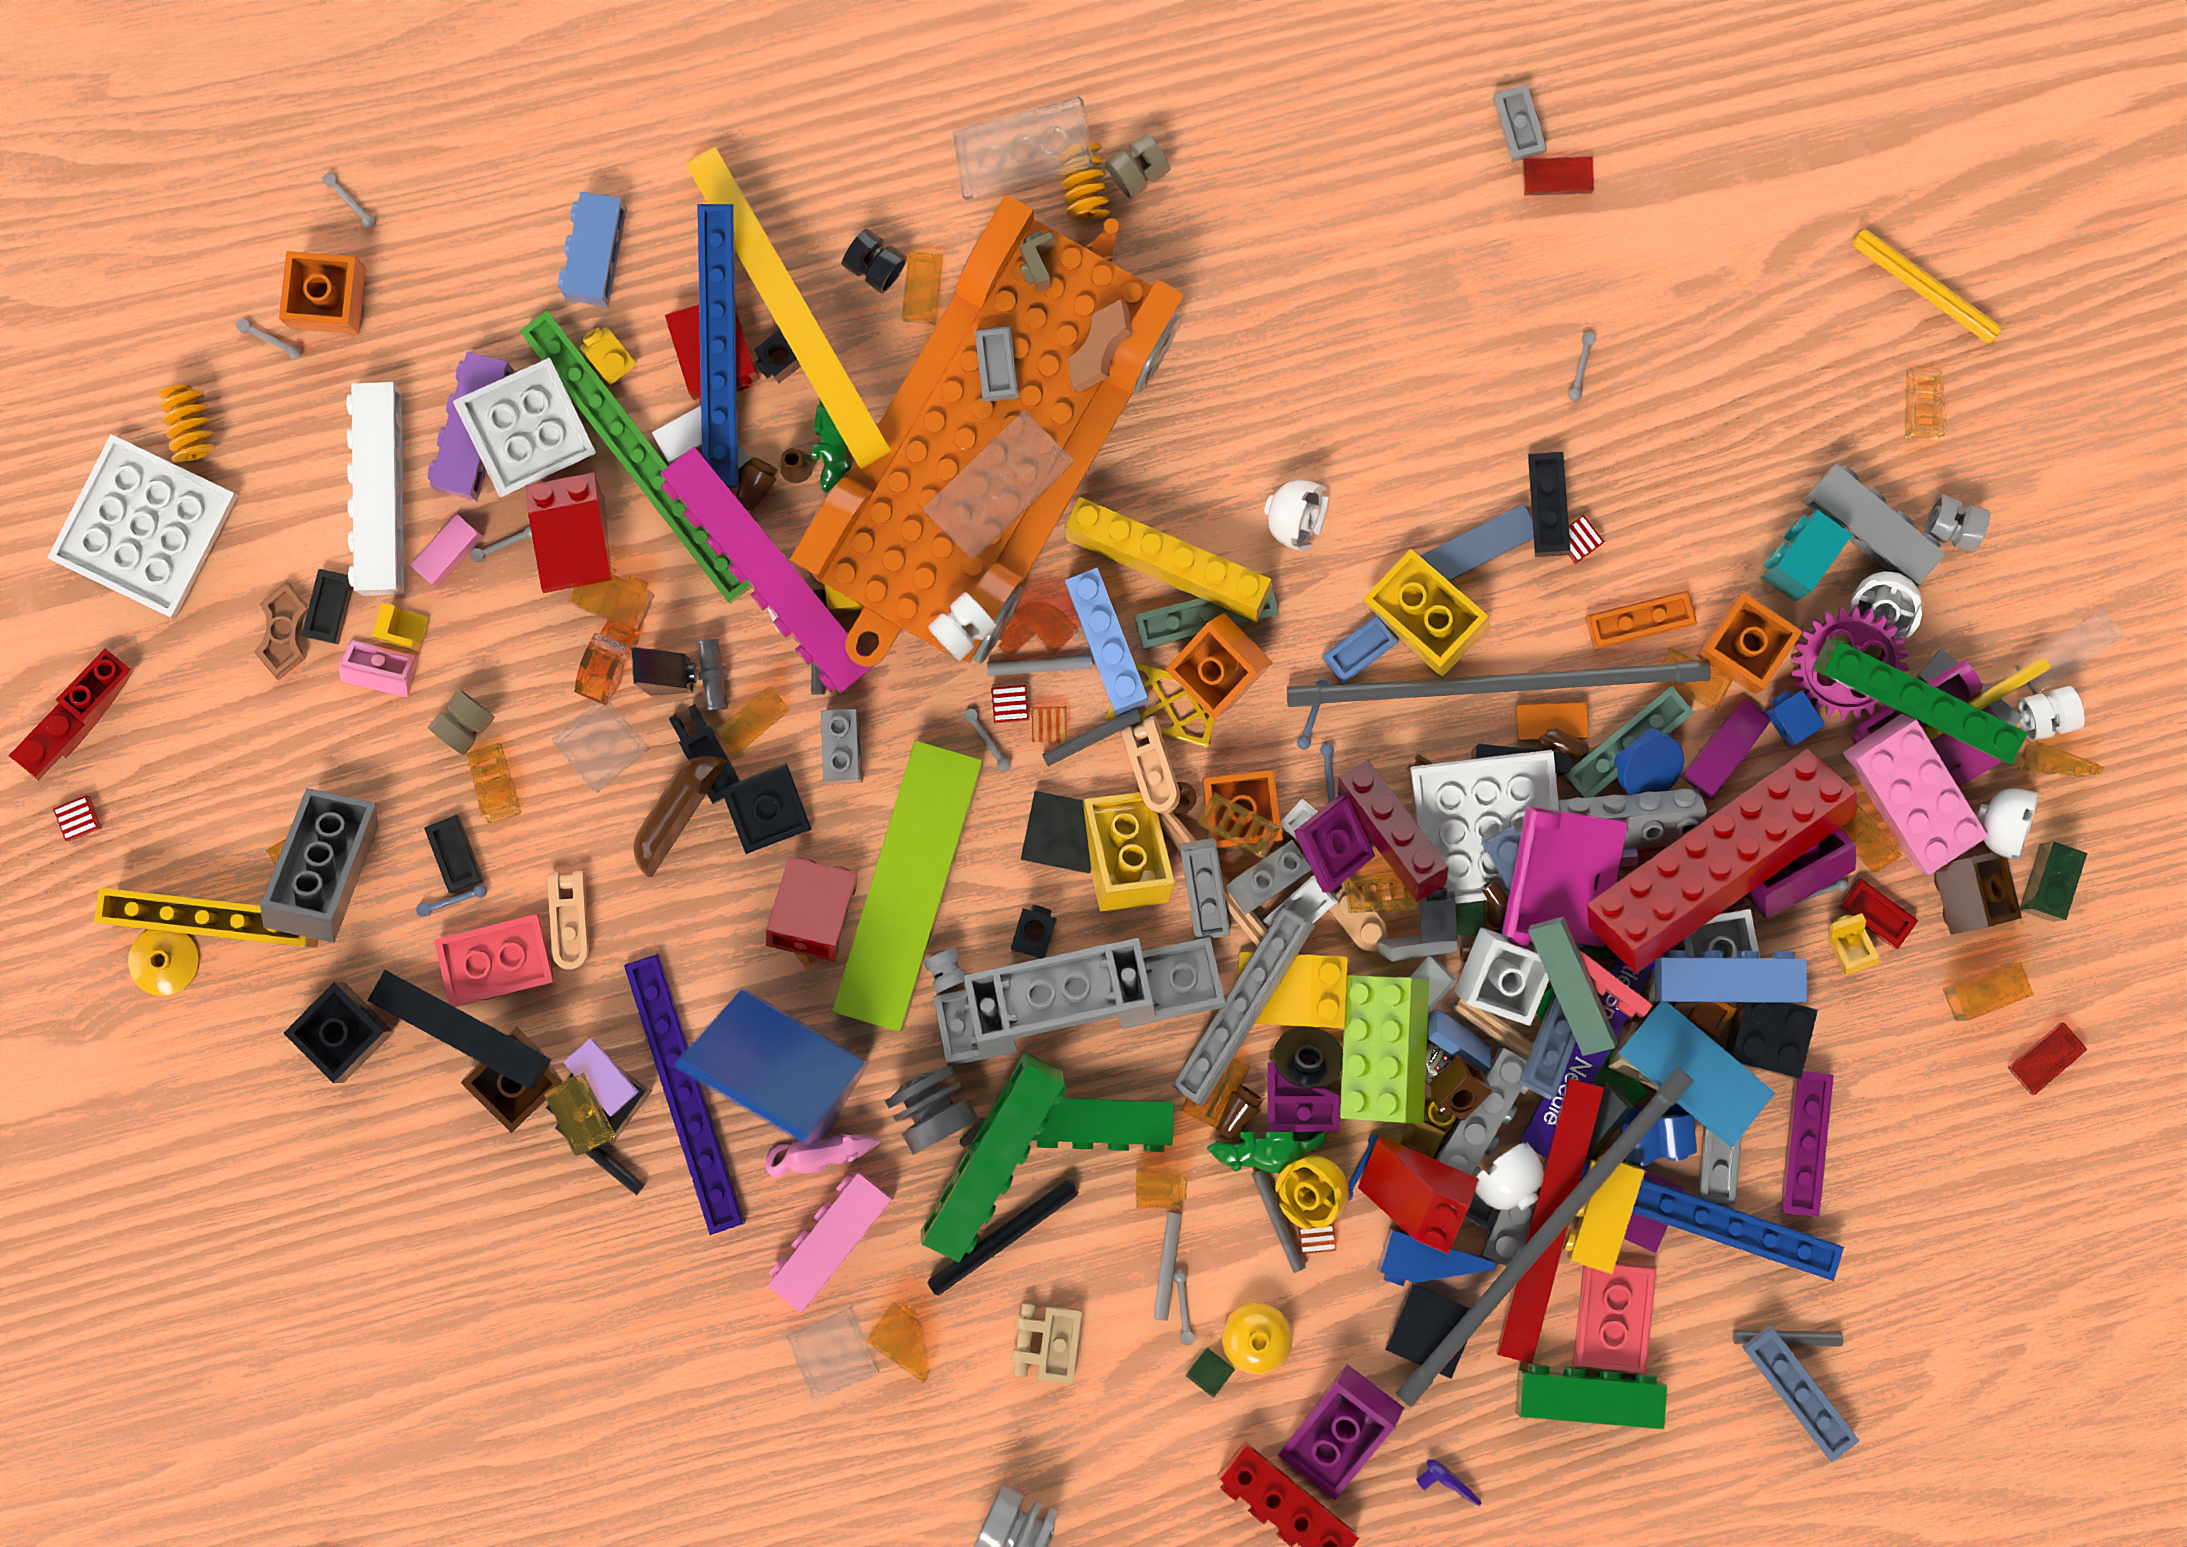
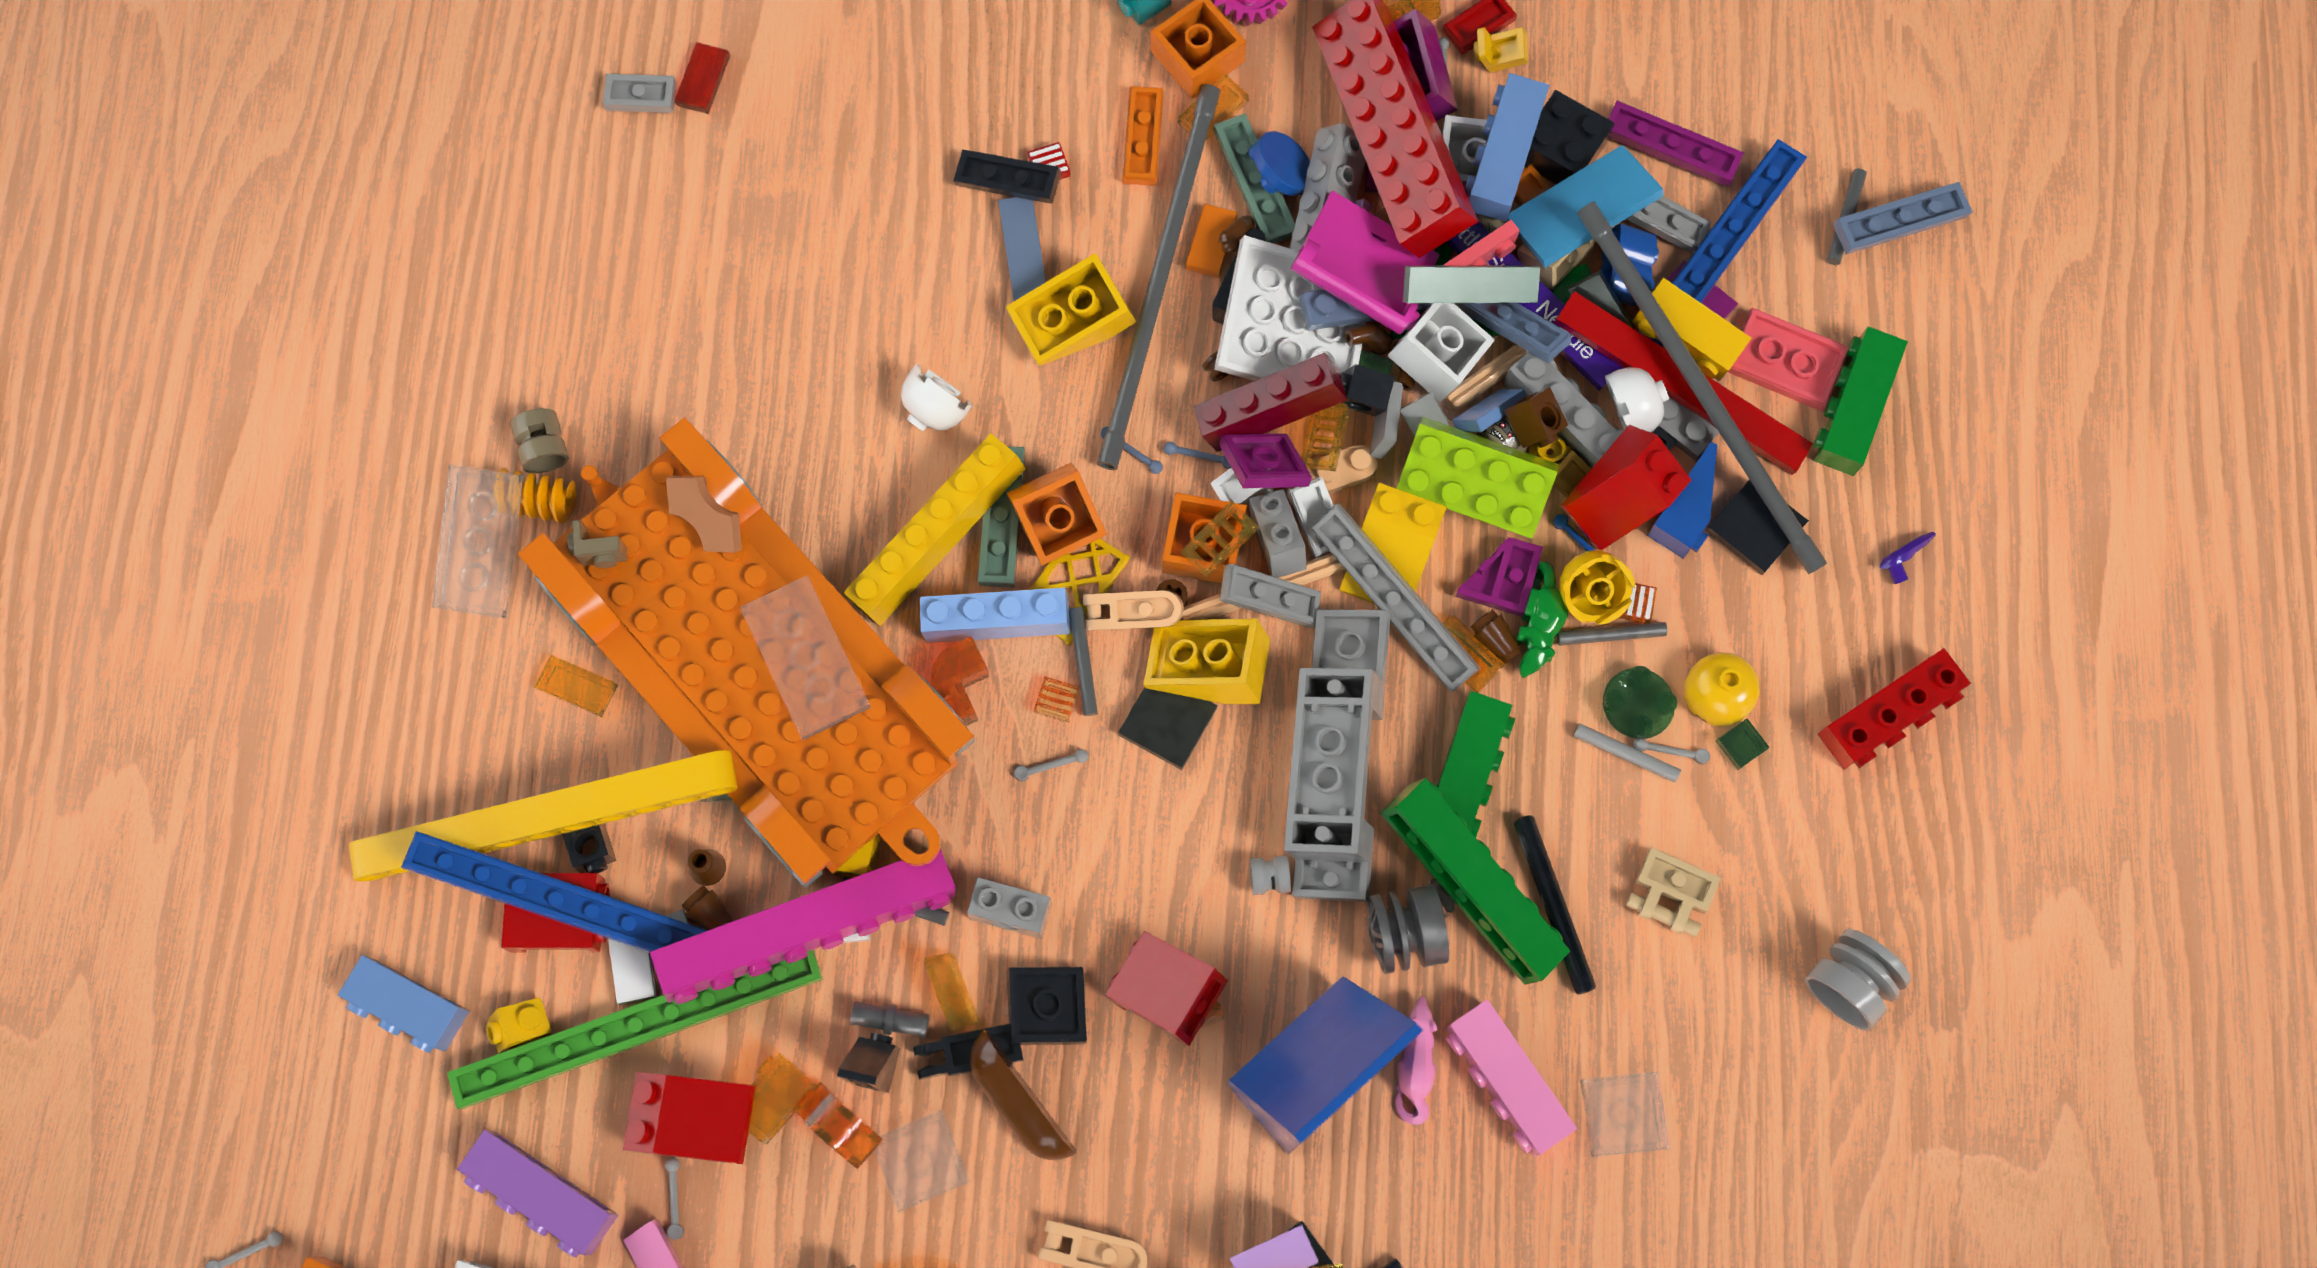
camera: 75 degrees left, 10 degrees down
(524, 427) = (560, 1132): white plate -> none
(684, 1095) = (1313, 1186): dark purple tile -> none
(831, 449) = (700, 822): green animal -> none
(884, 267) = (541, 713): black wheel -> none
(902, 1340) = (1630, 1036): clear yellow slope -> none
(908, 886) = (1173, 886): lime tile -> none
(949, 628) = (937, 728): white wheel -> none
(996, 364) = (683, 621): light grey tile -> none
(1010, 704) = (1023, 730): tile -> none
(1034, 948) = (1267, 790): black brick -> none
(1039, 665) = (994, 690): light grey bar -> none
(1159, 1188) = (1551, 730): clear yellow brick -> none
(1217, 1264) = (1639, 703): none -> clear green dish
(1310, 1046) = (1456, 545): black dish -> none
(1341, 1431) = (1834, 636): magenta slope -> none
(1360, 649) = (1084, 388): medium blue tile -> none
(1587, 340) = (865, 101): light grey hinge -> none
(1726, 748) = (1288, 99): magenta slope -> none
(1794, 717) = (1278, 32): blue brick -> none

